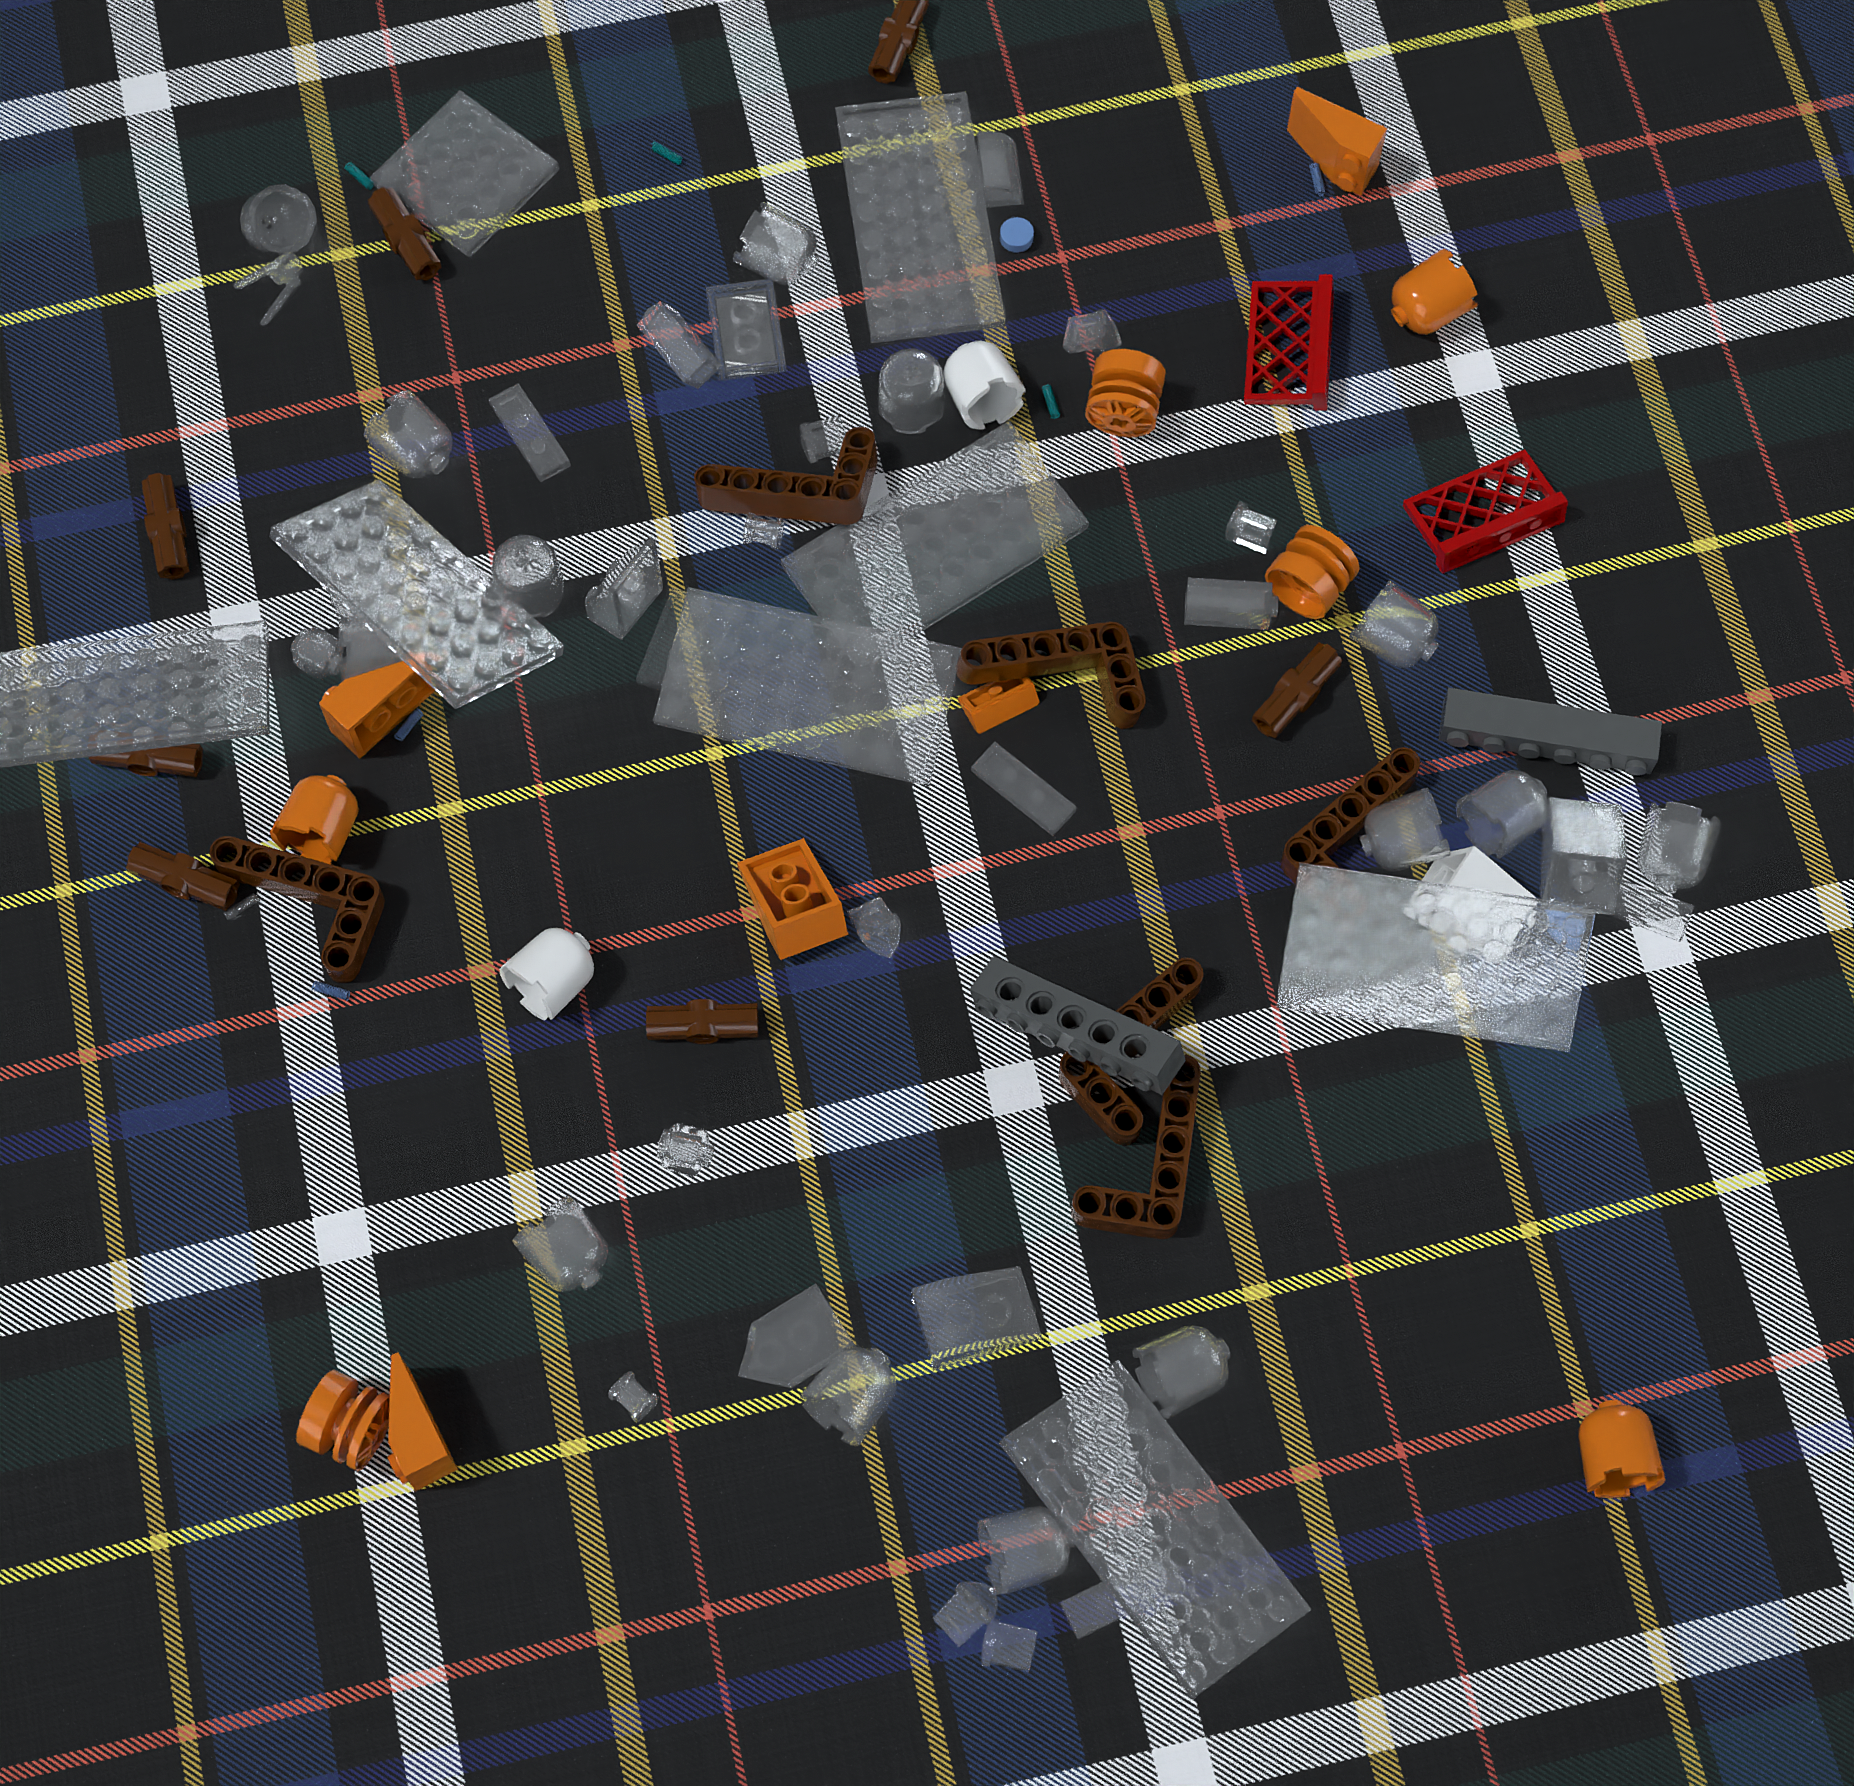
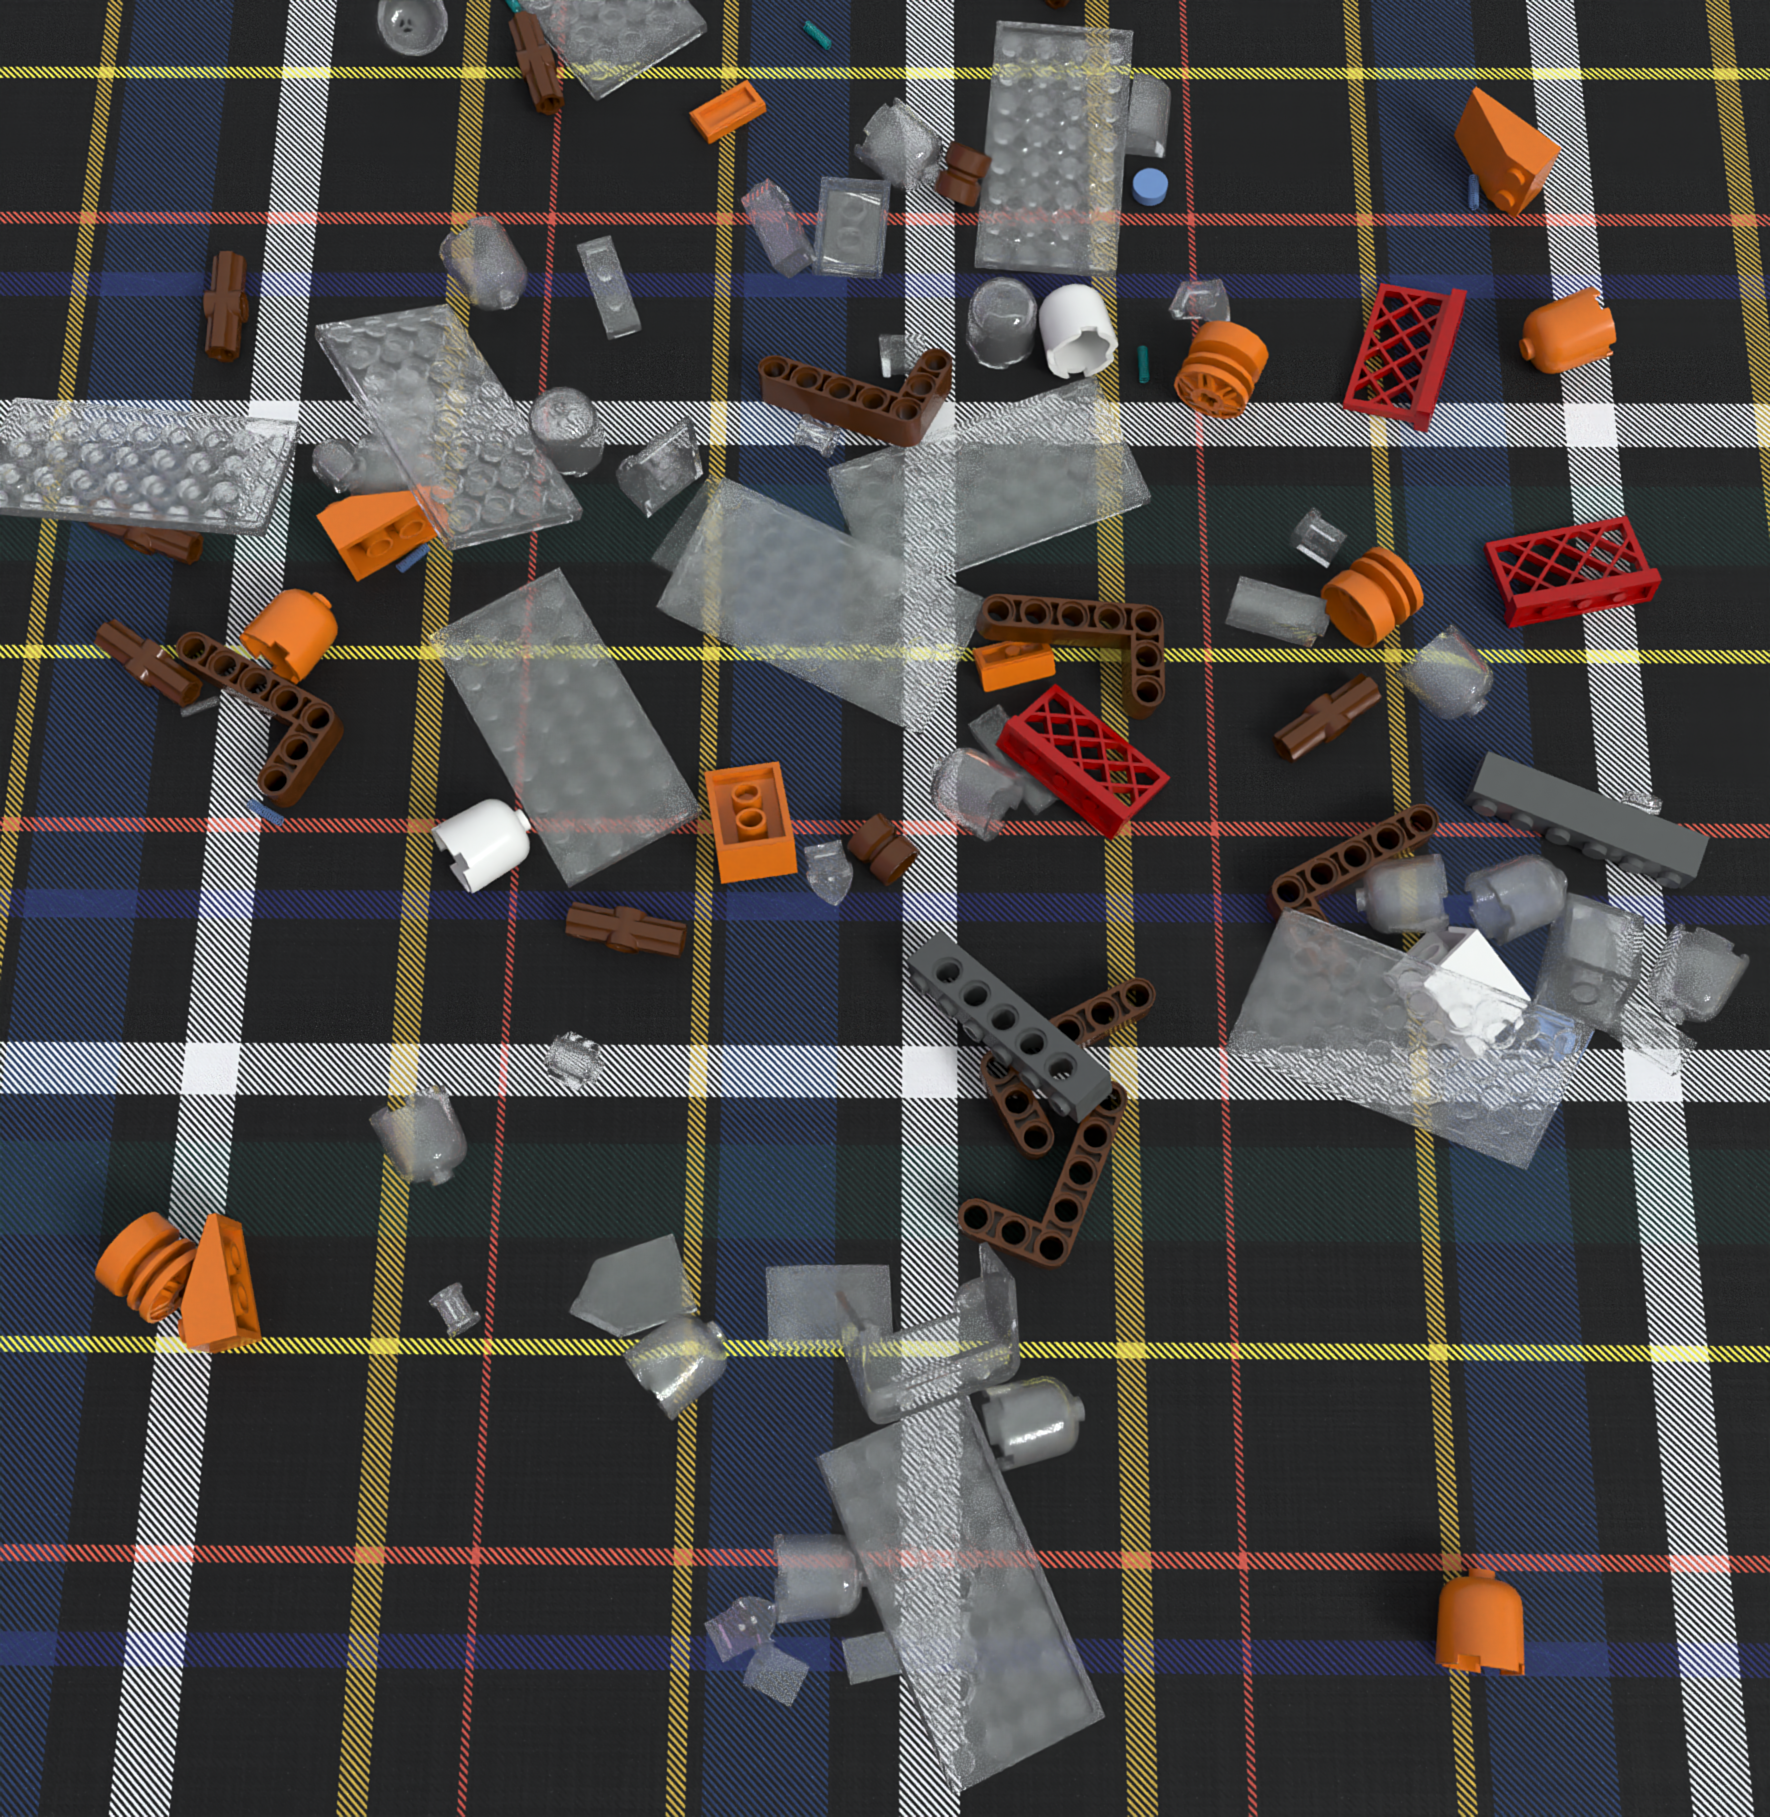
camera: 15 degrees right, 5 degrees up
(282, 270) = (408, 75): clear plant -> none
(595, 849) = (565, 727): none -> clear plate
(599, 243) = (727, 112): none -> orange tile
(840, 259) = (963, 171): none -> reddish brown wheel
(918, 893) = (878, 844): none -> reddish brown wheel
(994, 823) = (975, 790): none -> clear cylinder
(1074, 792) = (1067, 775): none -> red fence
(1088, 1333) = (939, 1357): none -> clear windscreen
(1597, 703) = (1643, 802): none -> clear tile

